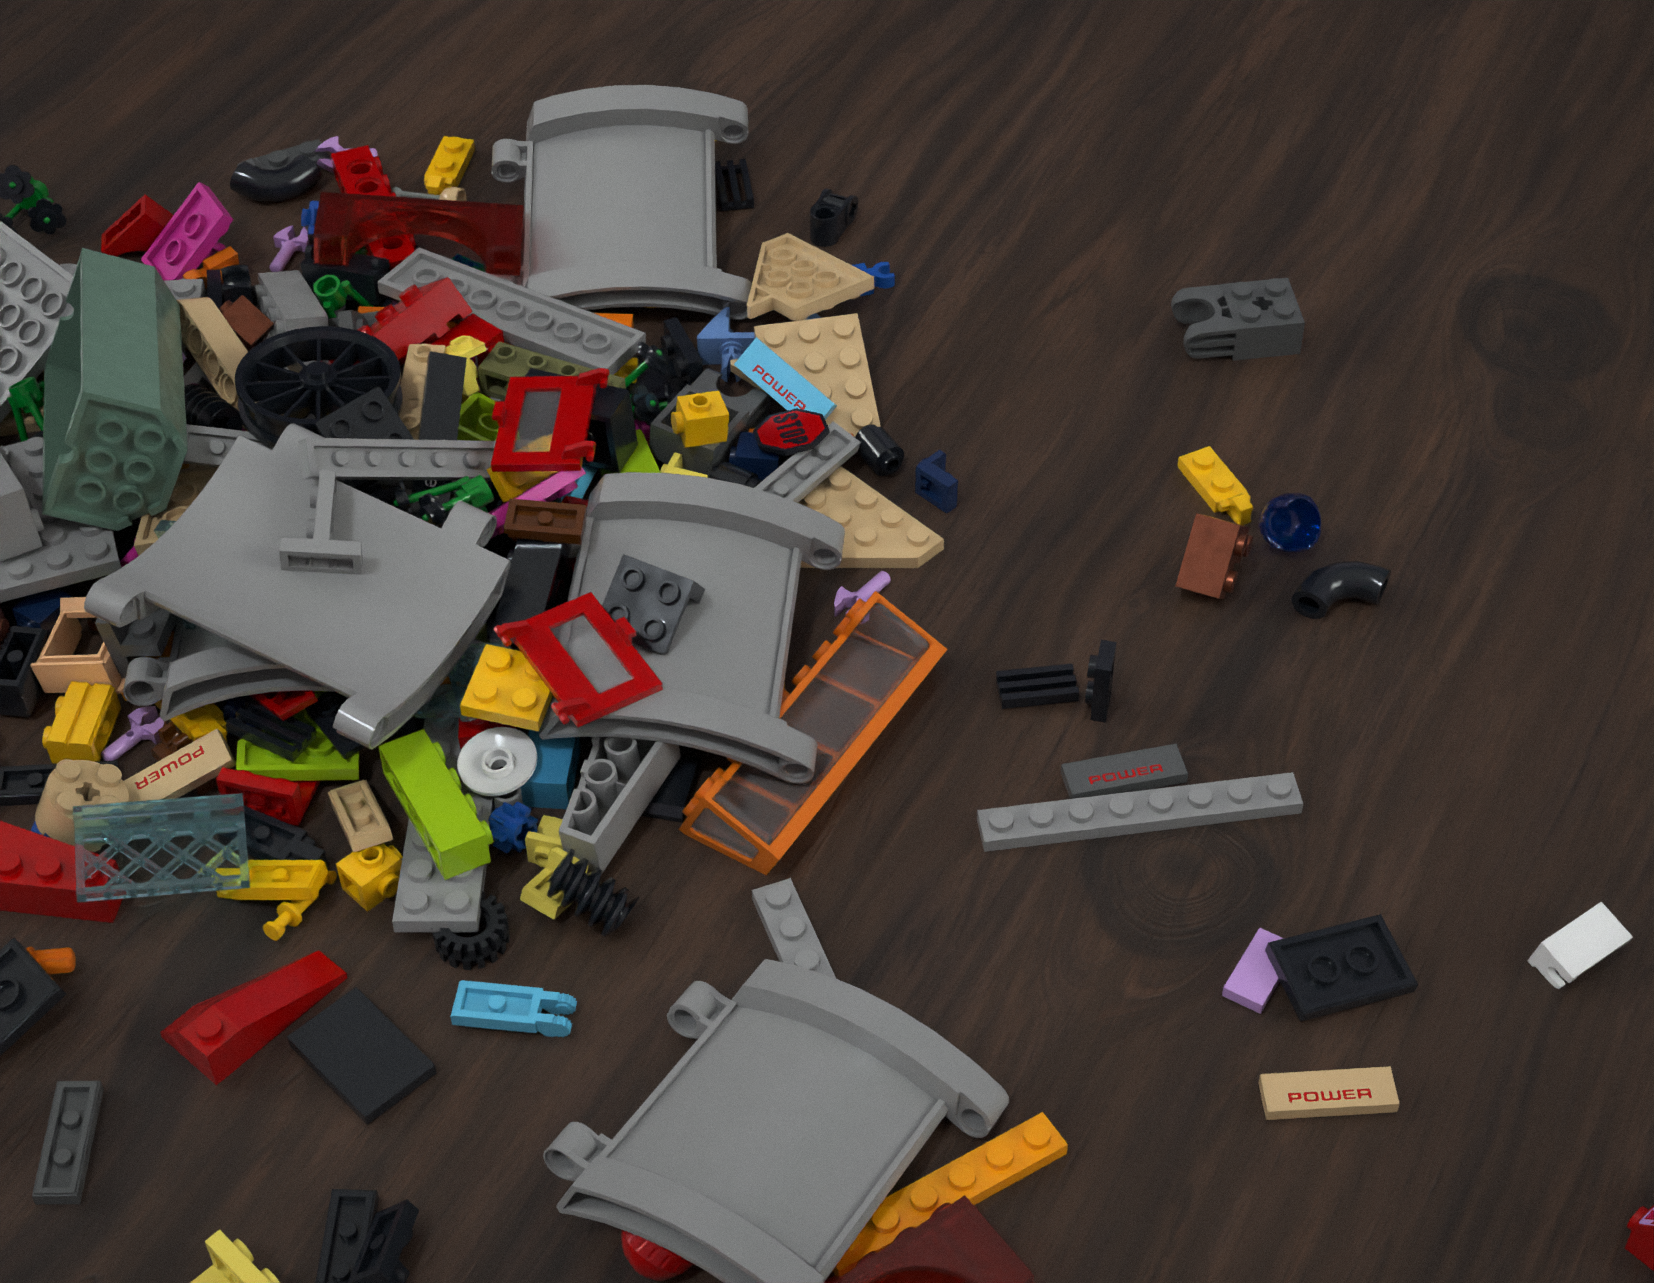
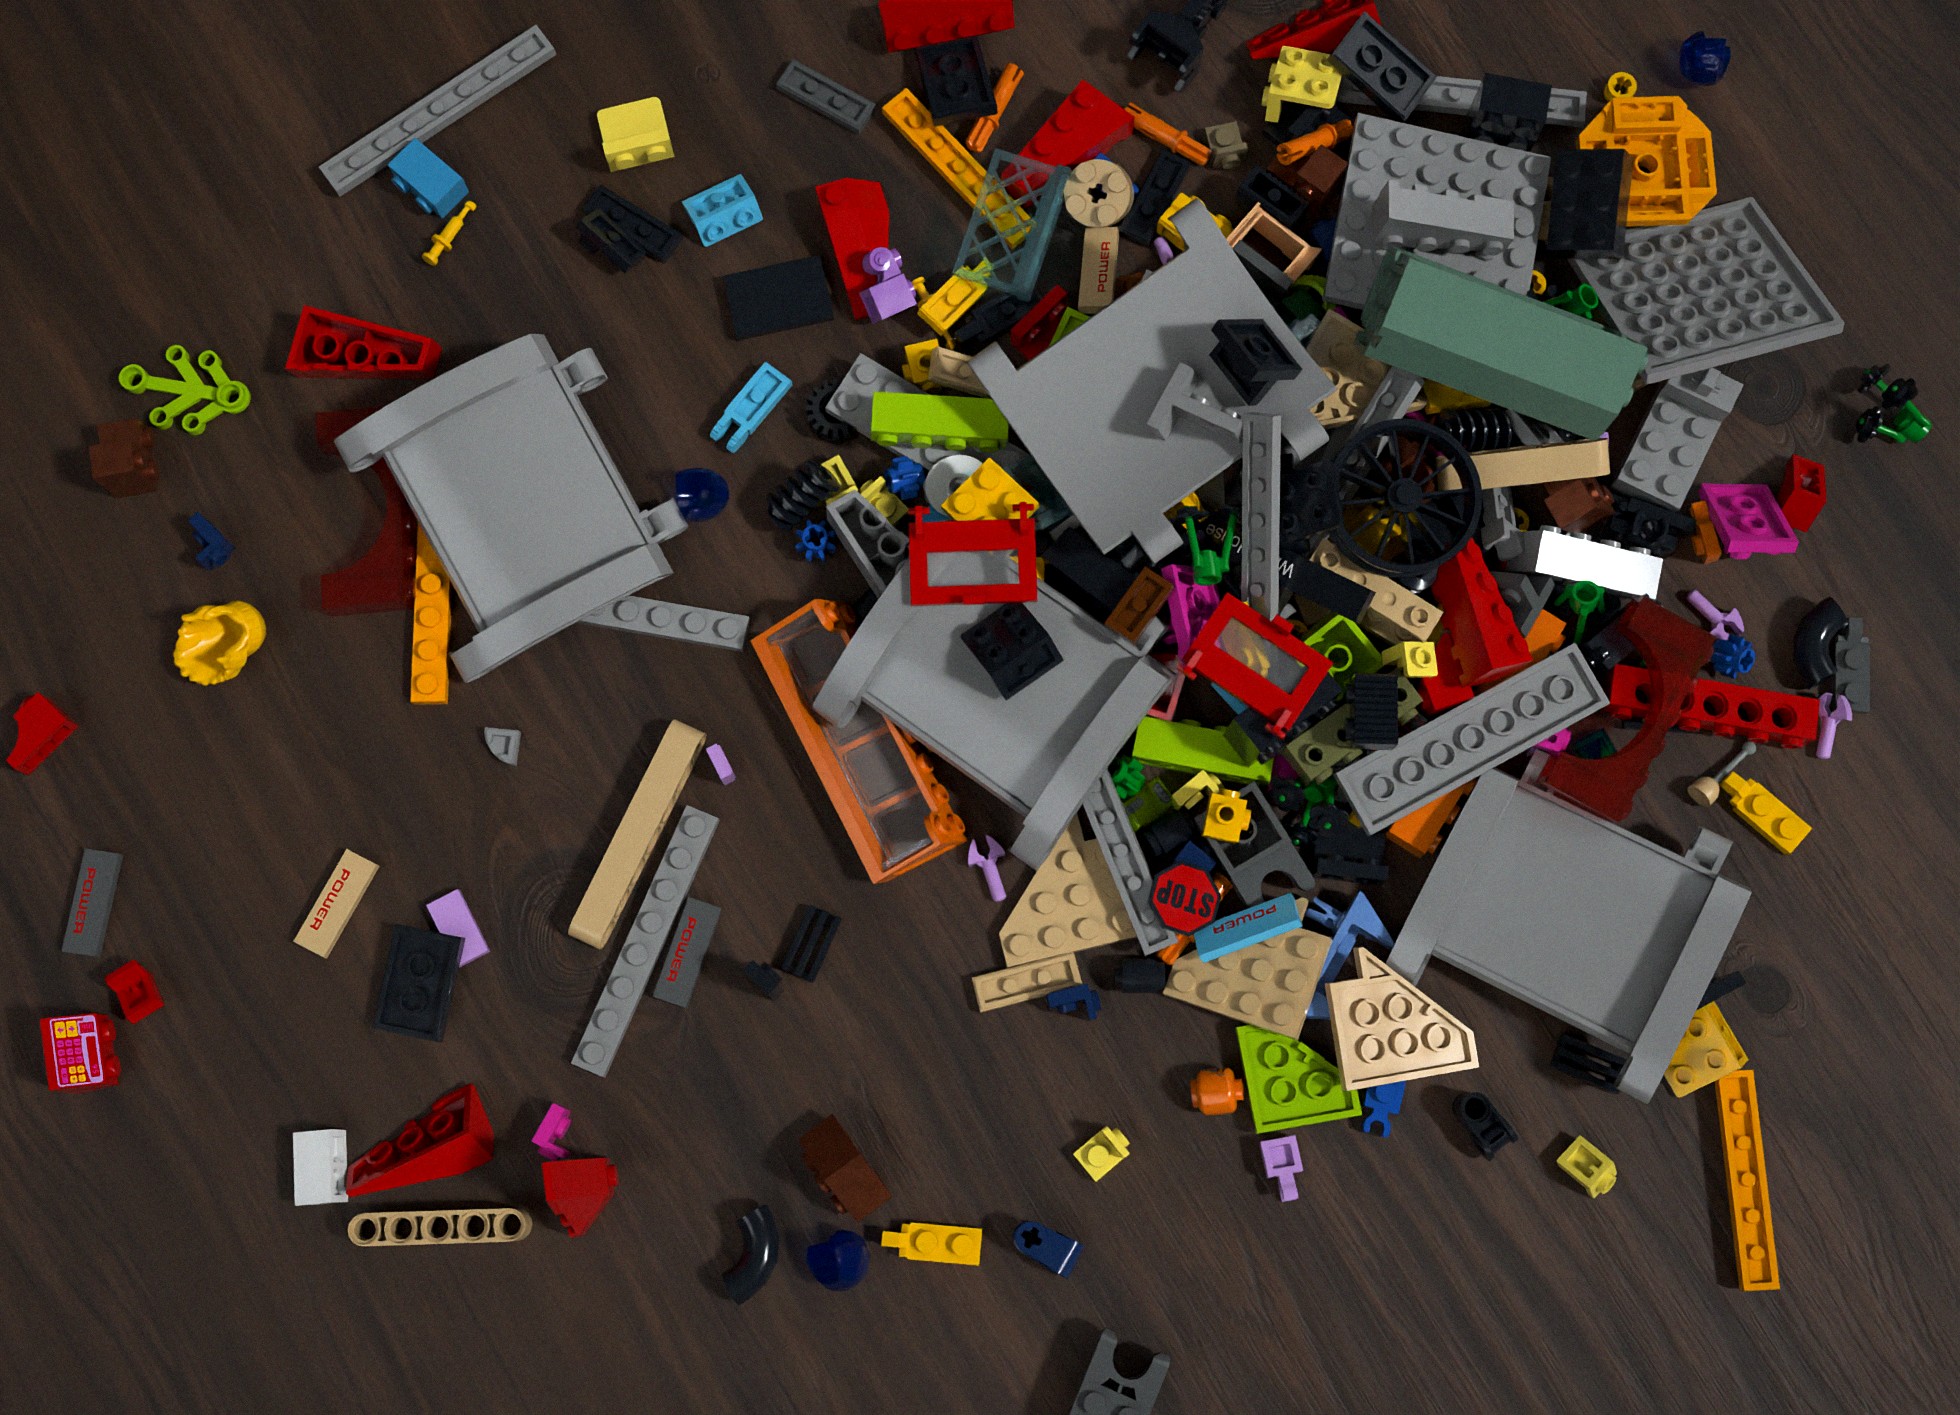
camera: 120 degrees right, 30 degrees up
(96, 976) = (950, 160): none -> light orange plate
(246, 500) = (1251, 357): none -> black bracket
(274, 1162) = (723, 210): none -> medium azure bracket
(300, 936) = (892, 291): none -> medium lavender brick
(536, 345) = (1372, 711): none -> black brick
(631, 870) = (807, 545): none -> blue gear
(648, 987) = (701, 494): none -> clear blue hair
(775, 69) = (1747, 1182): none -> light orange plate
(816, 152) = (1588, 1167): none -> light yellow bracket
(896, 328) = (1290, 1082): none -> lime plate
(922, 831) = (721, 764): none -> lavender tile
(937, 365) = (1216, 1091): none -> orange head
(959, 534) = (1026, 982): none -> tan tile
(961, 310) = (1281, 1160): none -> lavender plate
(1043, 864) = (637, 834): none -> tan beam
(1044, 1038) = (503, 744): none -> light grey tile
(1046, 416) = (1102, 1152): none -> light yellow bracket
(1155, 412) = (1053, 1249): none -> dark blue piece
(1374, 783) = (553, 1126): none -> dark pink bracket
(1409, 709) = (579, 1190): none -> red wedge
(1472, 868) = (438, 1146): none -> red wedge
(1538, 821) = (423, 1222): none -> tan beam
(1579, 1216) = (135, 990): none -> red bracket

